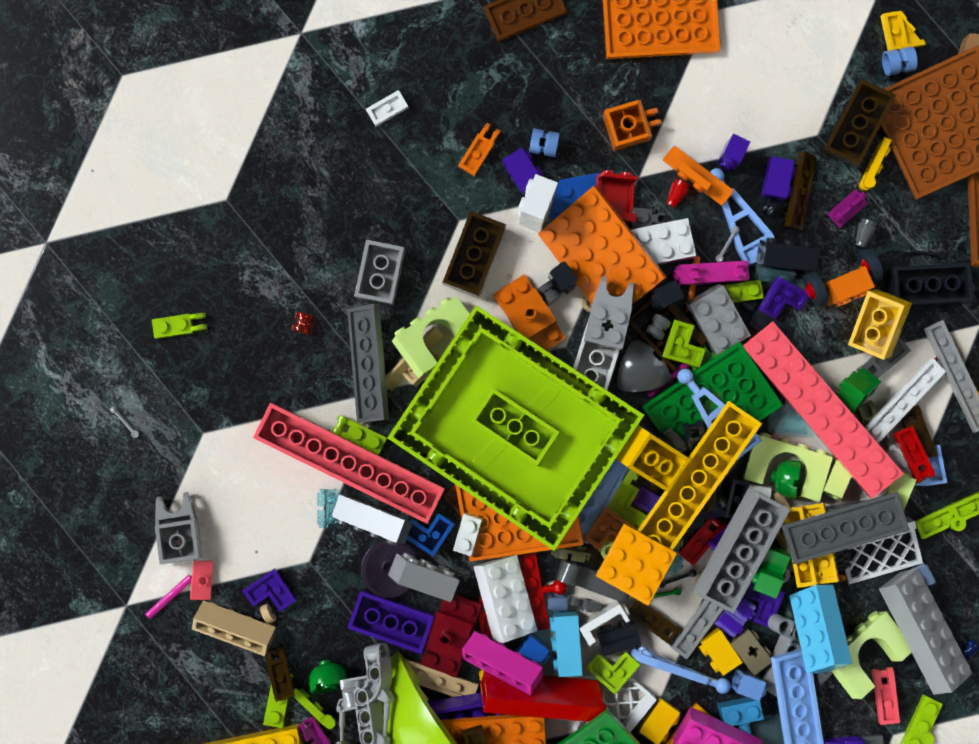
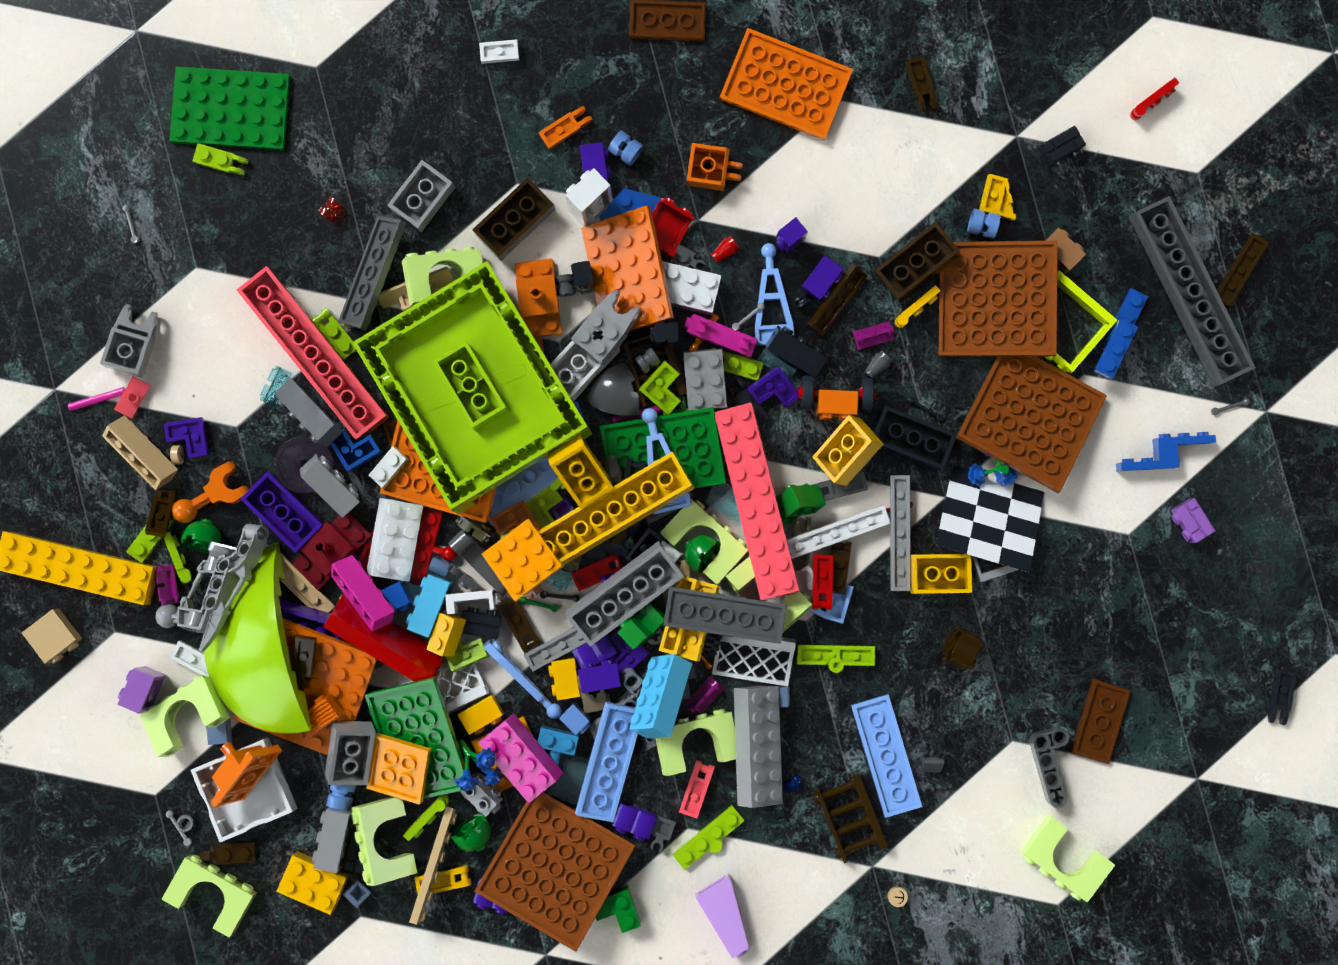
camera: 20 degrees right, 0 degrees up
(165, 274) = (230, 108): none -> green plate
(320, 629) = (215, 492): none -> orange piece
(595, 664) = (446, 634): none -> yellow brick
(699, 176) = (750, 241): orange bracket -> none
(753, 636) = (599, 677): none -> dark purple brick
(852, 607) = (704, 696): none -> magenta hinge

